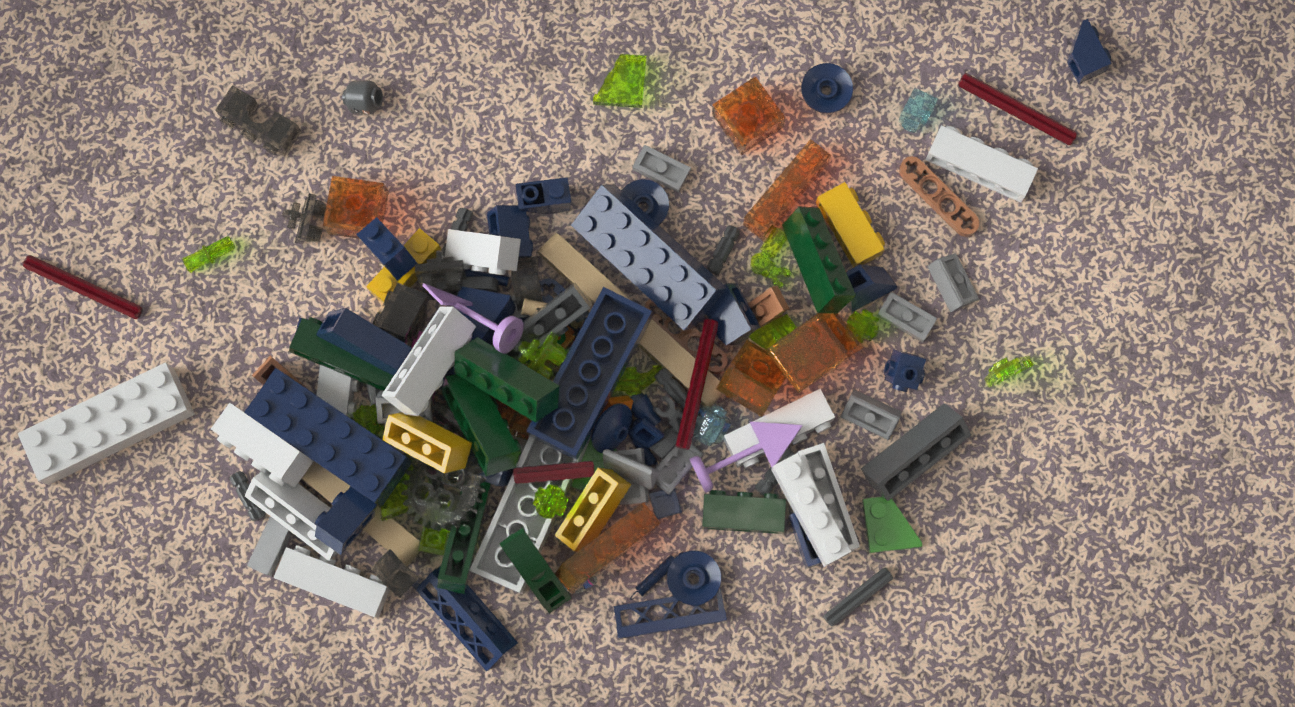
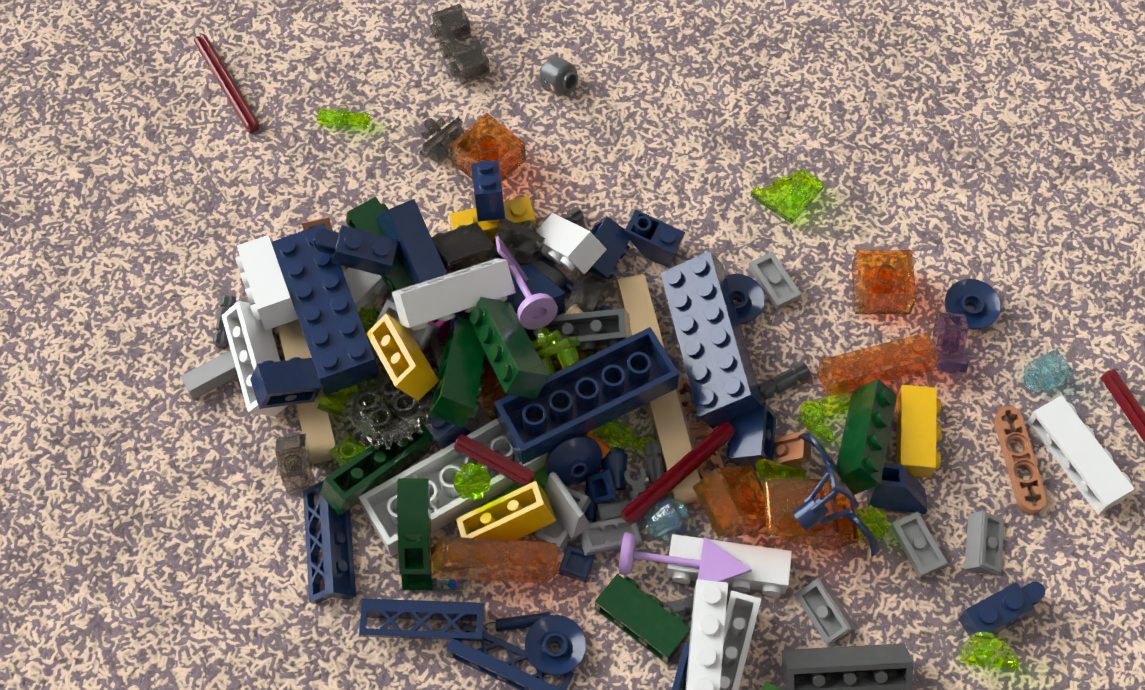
camera: 30 degrees right, 15 degrees down
(106, 424) = (159, 191): white brick -> none
(325, 375) = (357, 249): none -> dark blue brick
(332, 582) = (238, 435): white brick -> none
(573, 622) = (422, 612): none -> dark blue fence
(823, 351) = (814, 510): none -> dark blue plant
(829, 134) = (949, 341): none -> clear purple brick
(904, 370) = (895, 589): dark blue brick -> none
(997, 329) = (1002, 609): none -> dark blue brick

